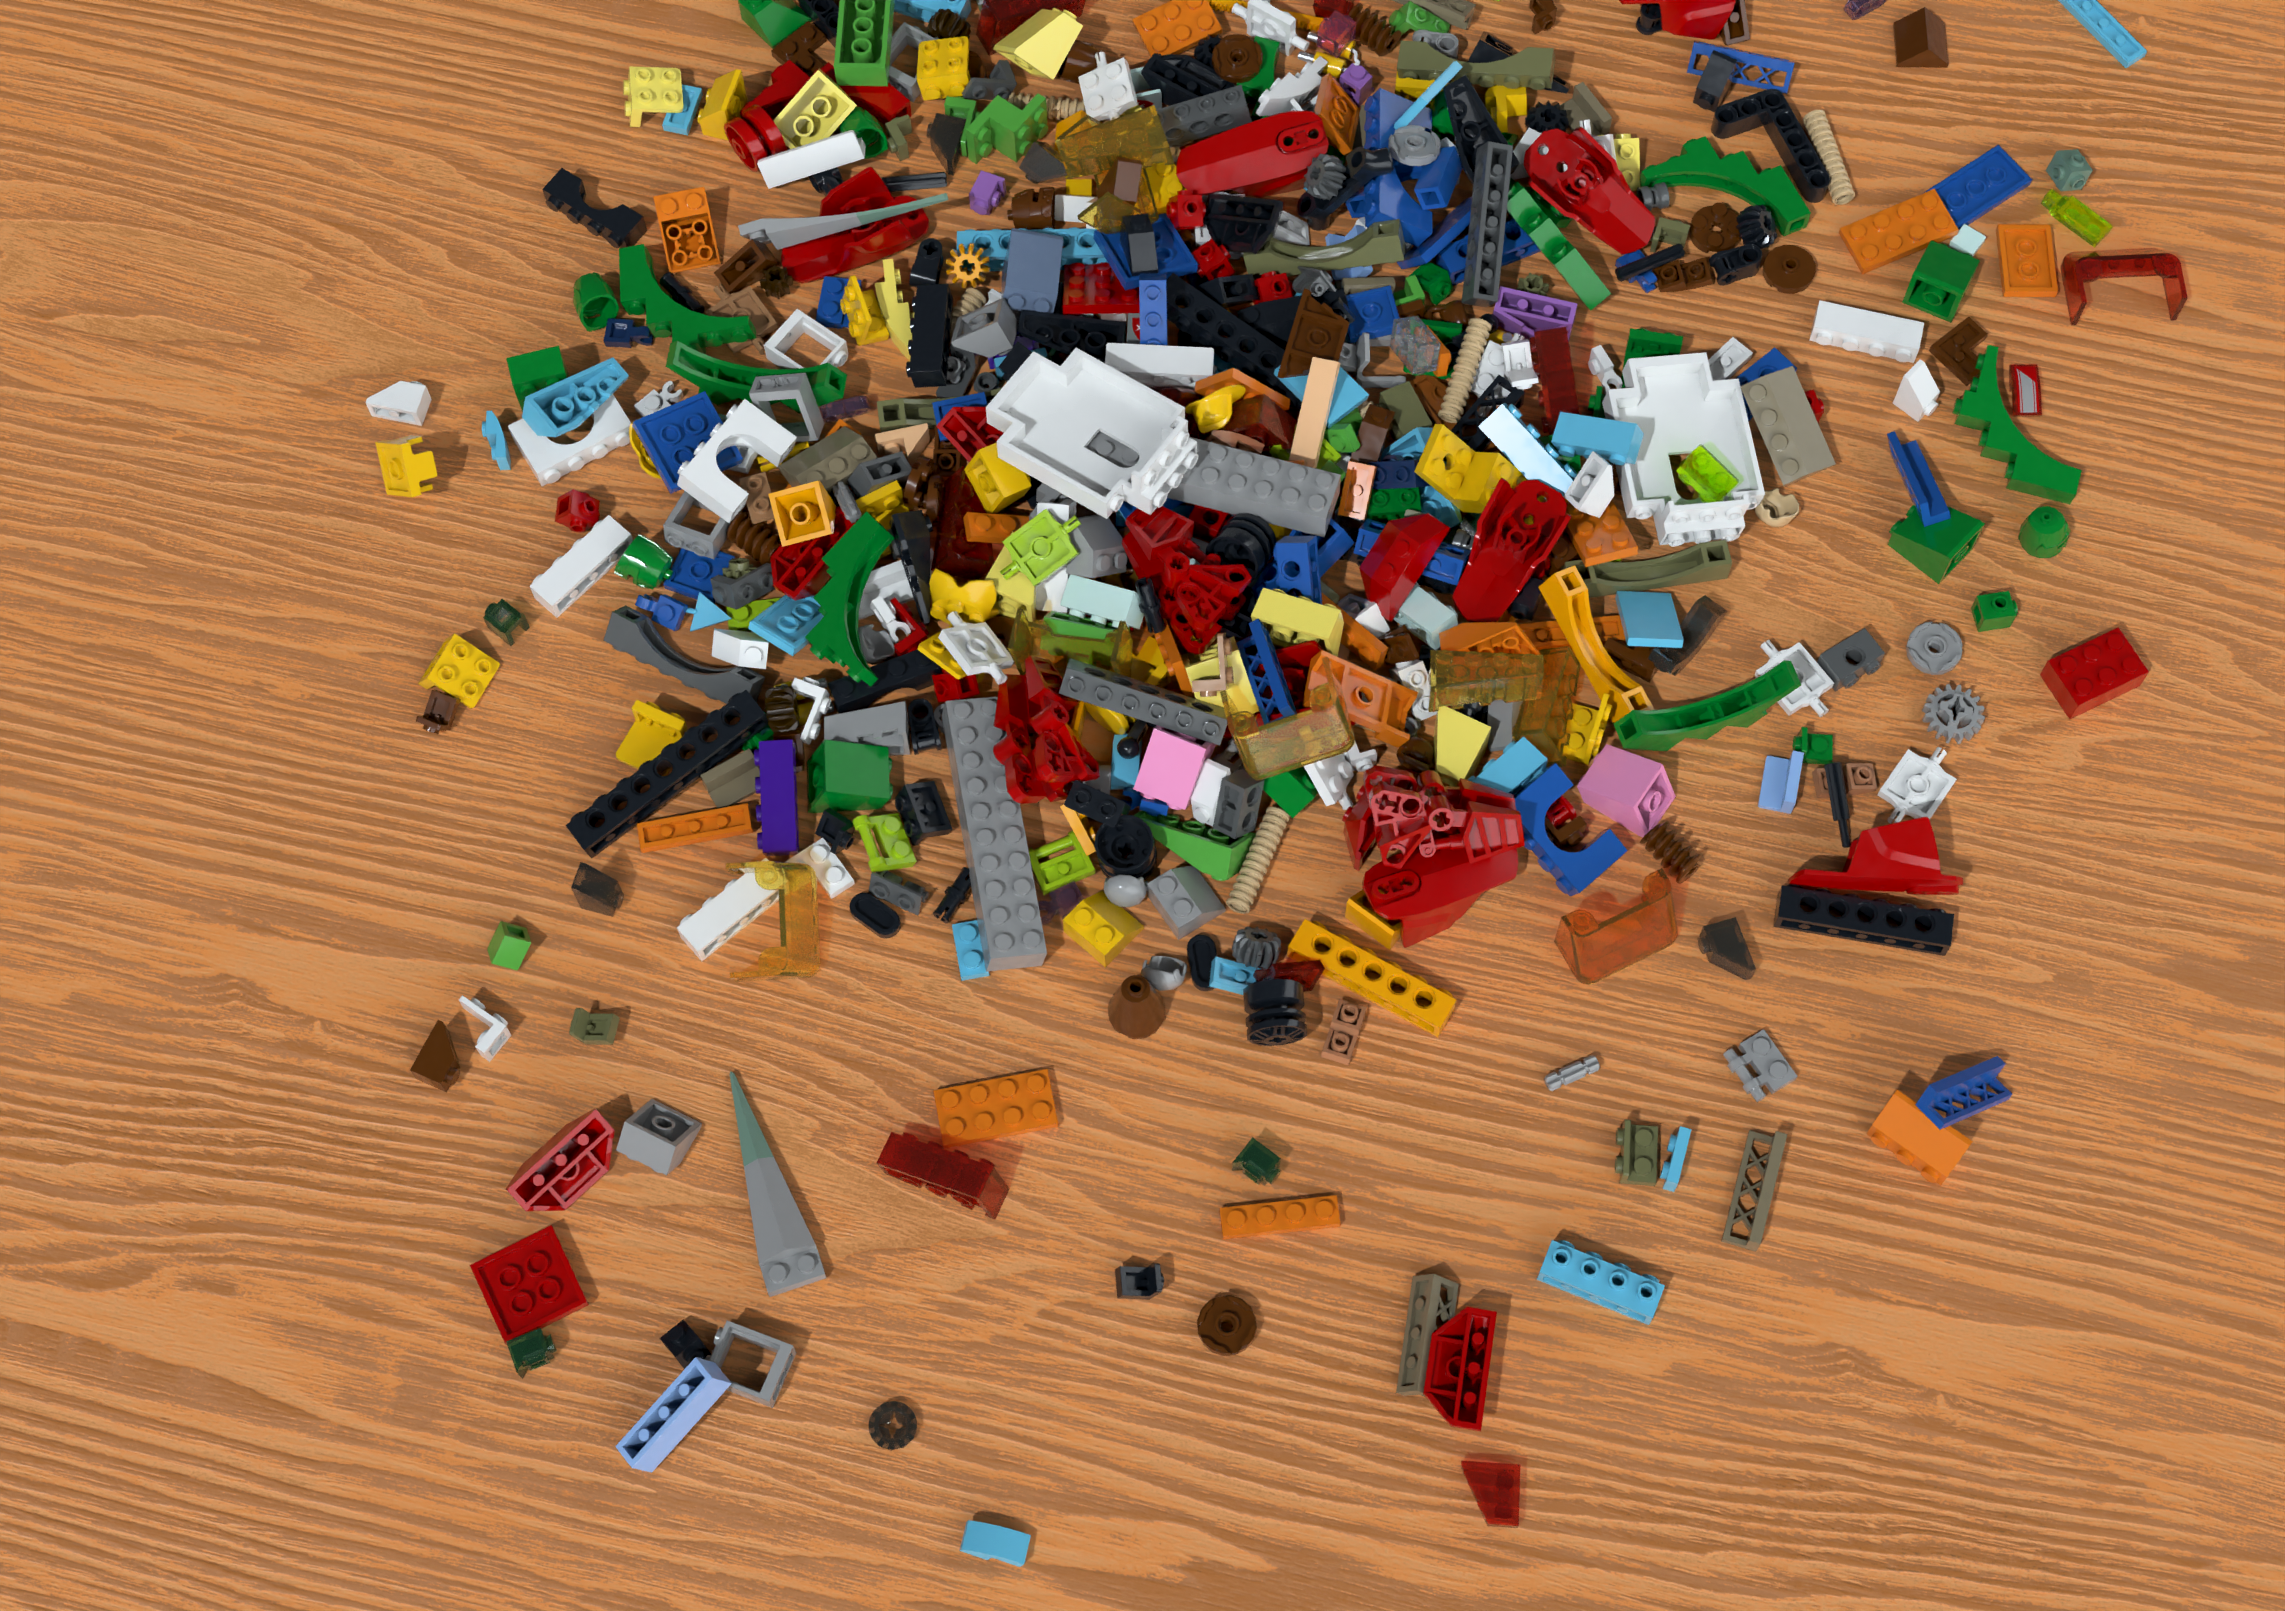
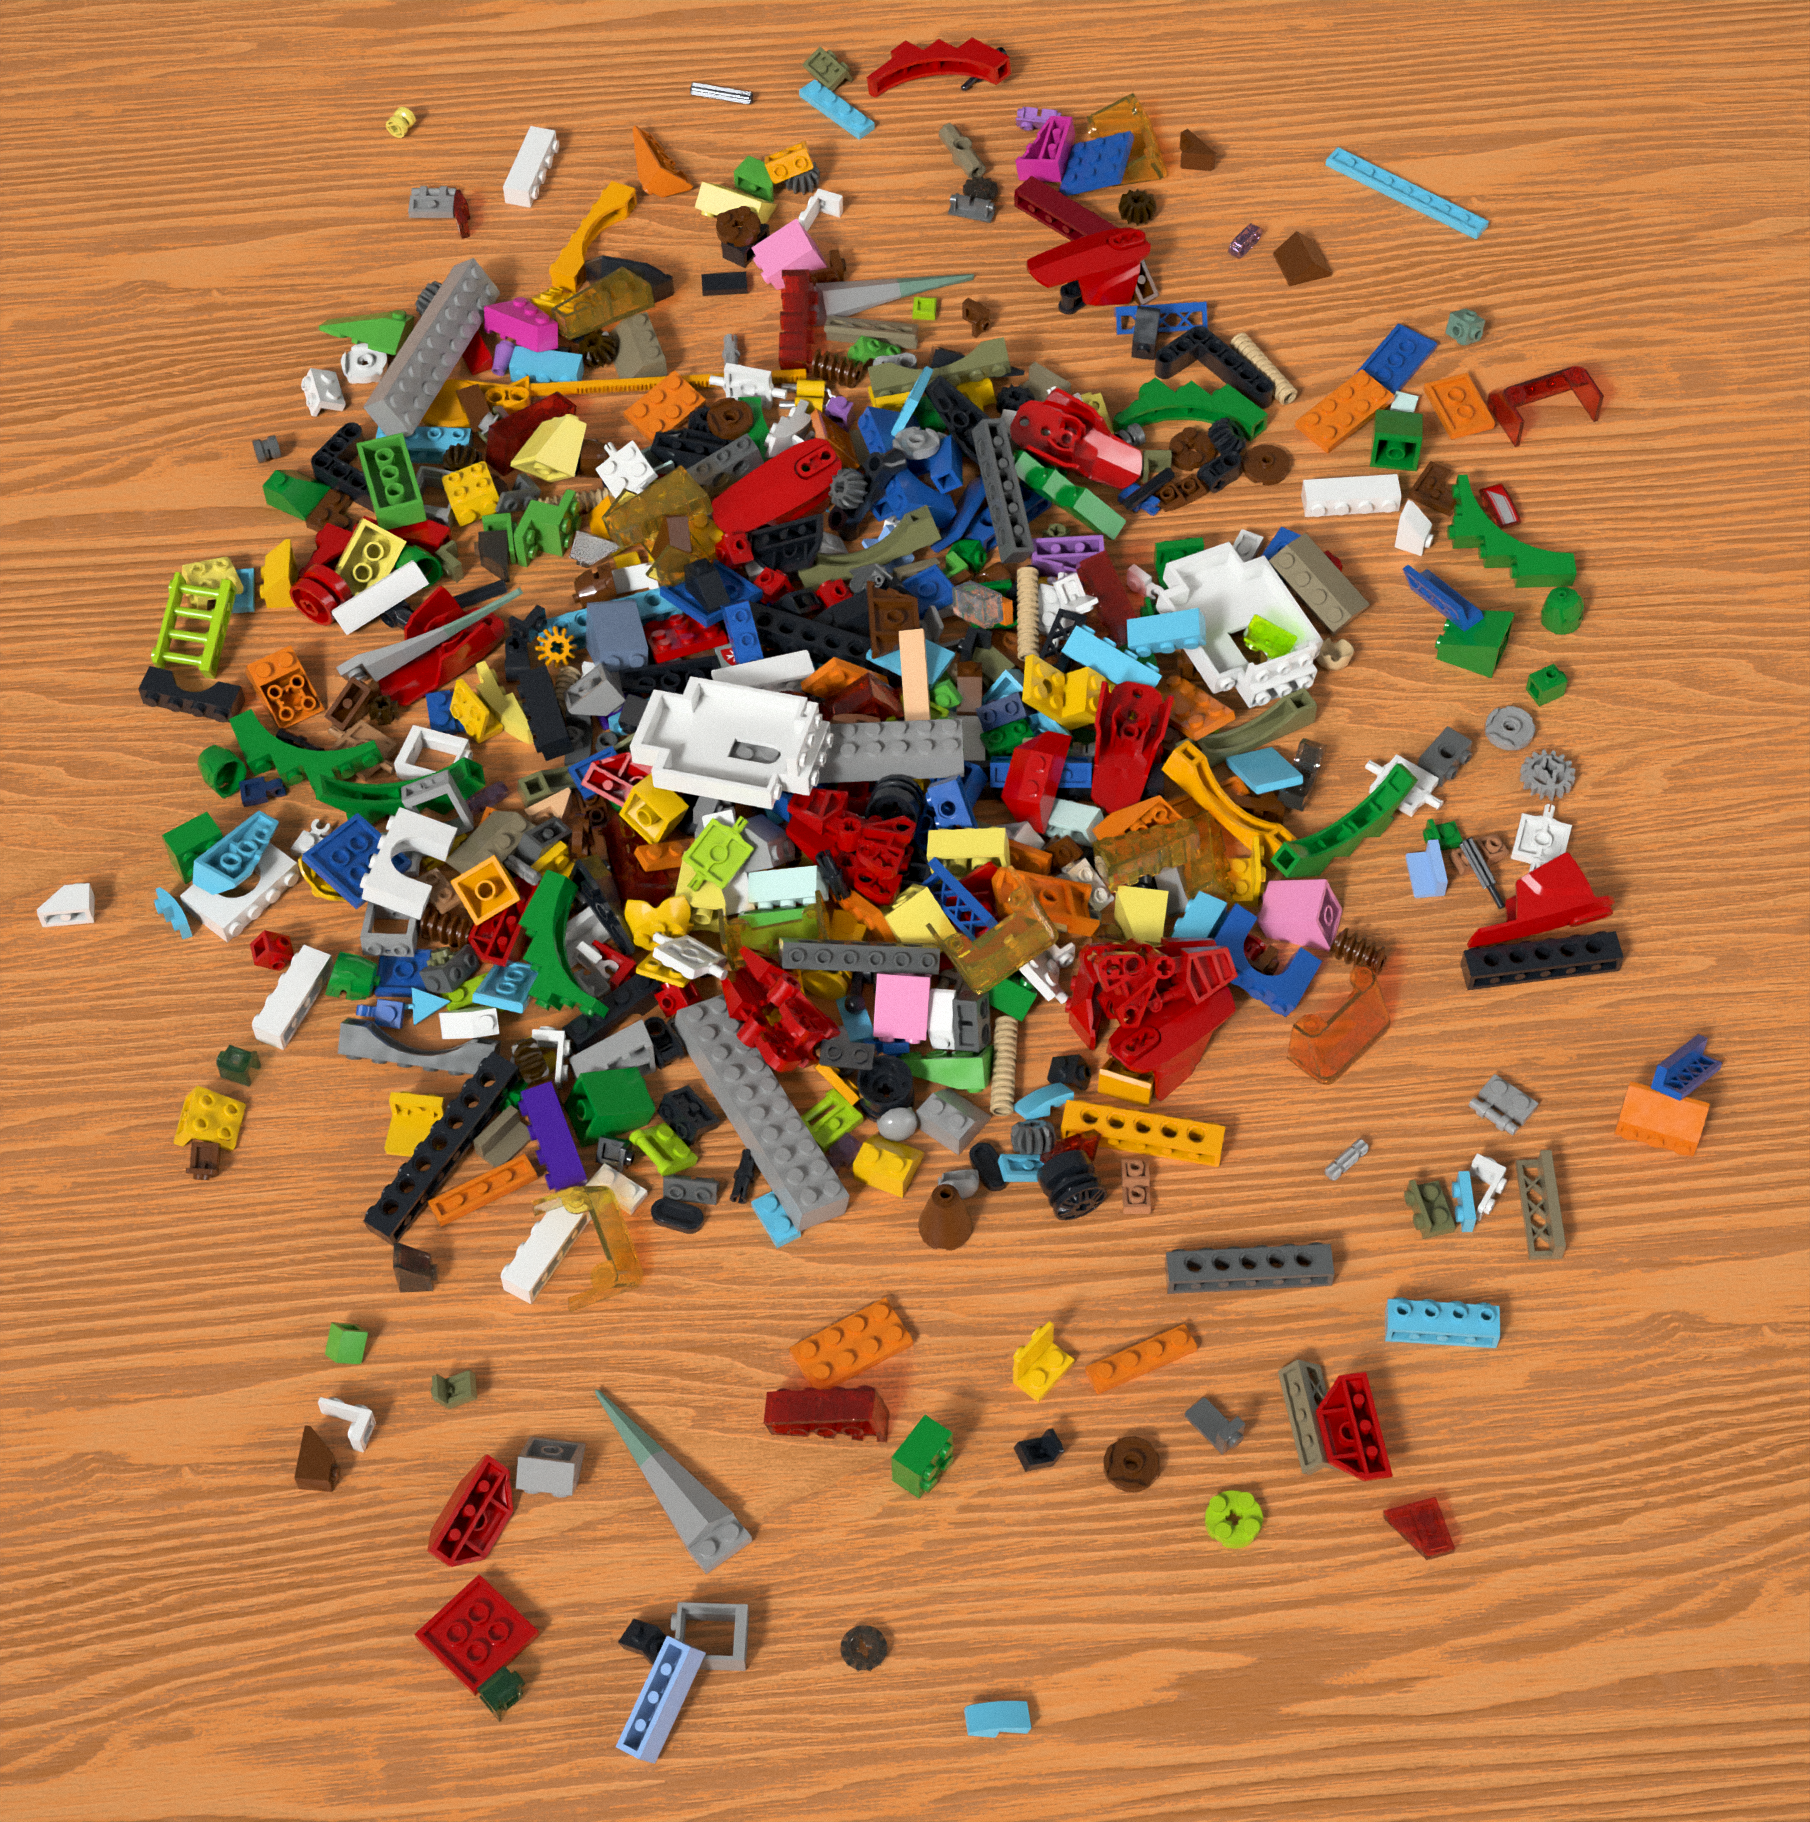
camera: 20 degrees left, 10 degrees down
(403, 469) = (95, 957): yellow panel -> none
(633, 156) = (213, 640): none -> lime fence
(950, 235) = (530, 626): none -> black bracket
(986, 193) = (547, 586): medium lavender brick -> none
(1019, 1251) = (922, 1457): none -> green brick
(1174, 1190) = (1040, 1363): none -> yellow bracket
(1209, 687) = (913, 925): medium nougat bracket -> none
(1215, 409) = (831, 695): yellow piece -> none
(1258, 1163) = (1105, 1317): clear green window -> none
(1276, 911) = (1039, 1102): none -> medium azure slope
(1293, 1425) = (1224, 1531): none -> lime plate
(1323, 886) = (1070, 1070): none -> black bracket
(1326, 1313) = (1215, 1426): none -> dark grey bracket
(1336, 33) = (808, 377): clear pink brick -> none
(1357, 490) = (974, 734): plate -> none
(1395, 382) = (974, 638): none -> black bracket
(1434, 1171) = (1238, 1278): none -> dark grey brick
(1592, 486) = (1177, 672): white slope -> none
(1715, 1134) = (1492, 1173): none -> white bracket
(1727, 948) = (1437, 1017): clear smoke slope -> none
(2077, 217) = (1485, 362): clear neon green hinge -> none
(2094, 673) = (1649, 709): red brick -> none

